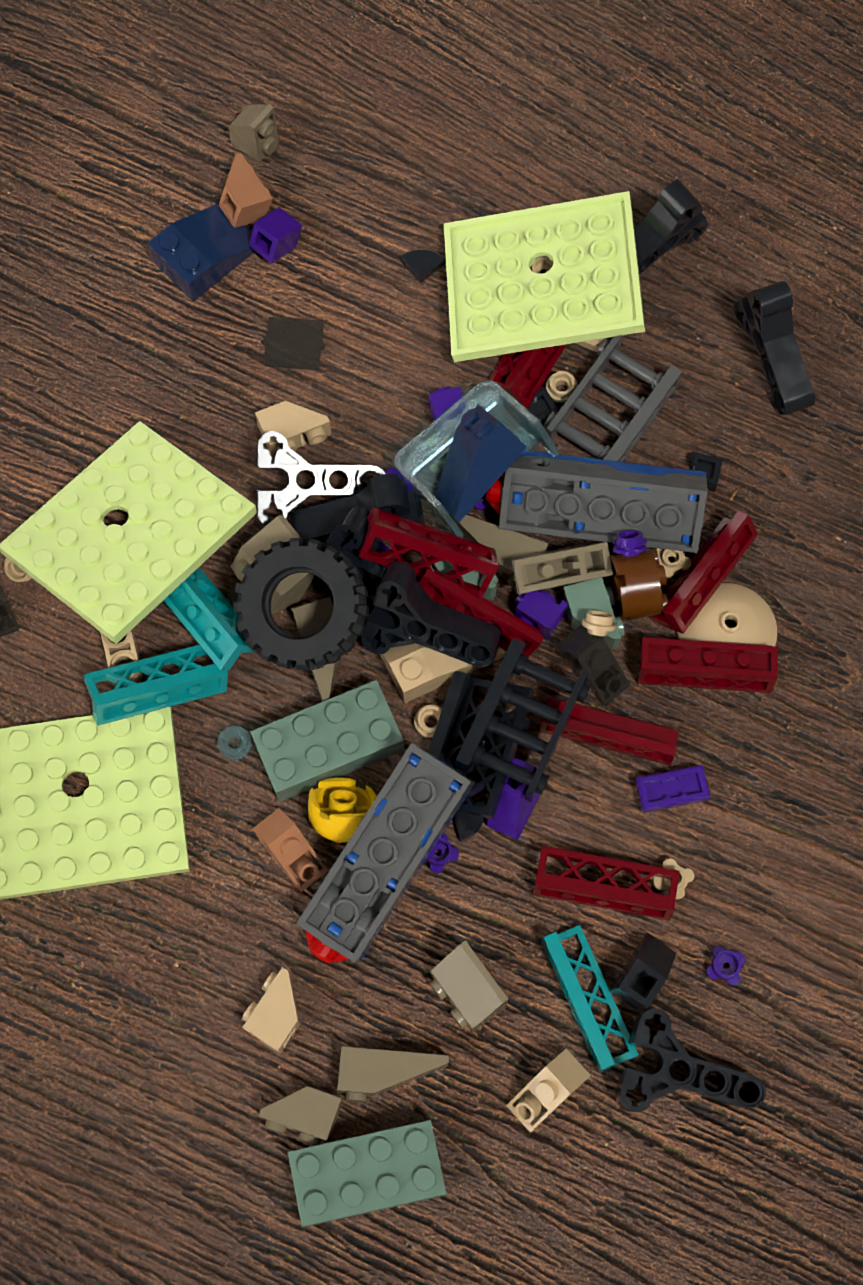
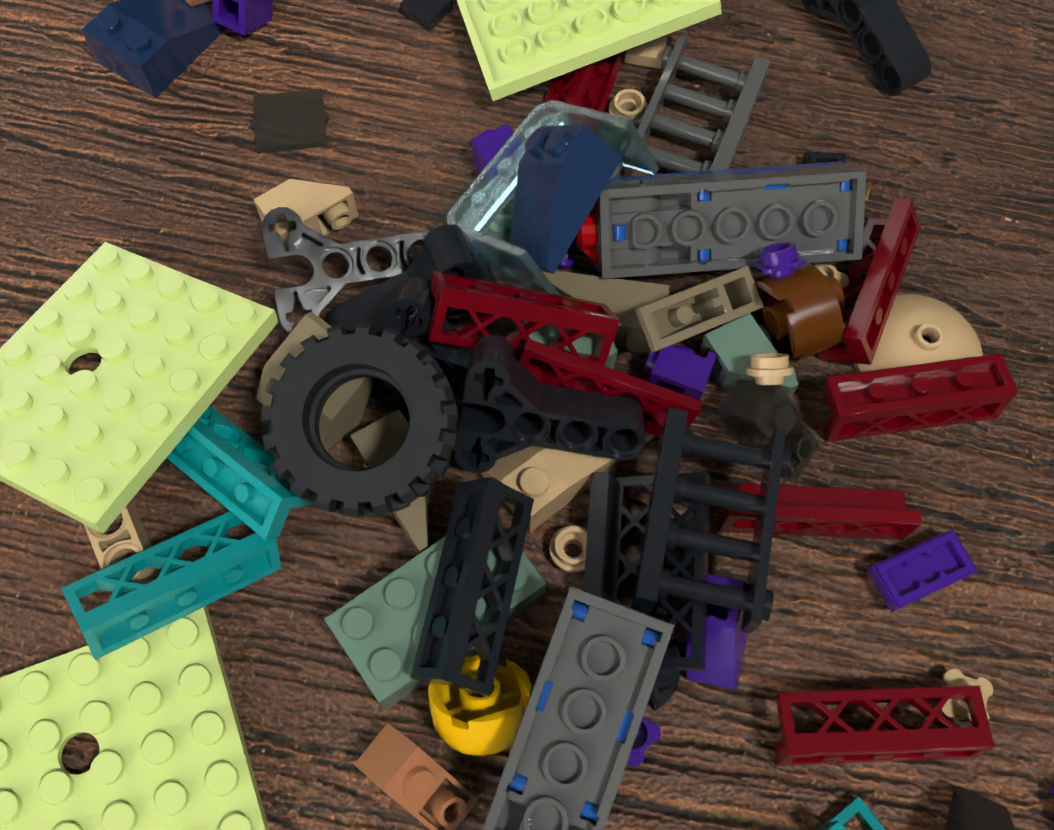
camera: 15 degrees left, 5 degrees down
(229, 734) = (292, 633): clear light blue plate -> none
(343, 728) = (464, 579): none -> black fence

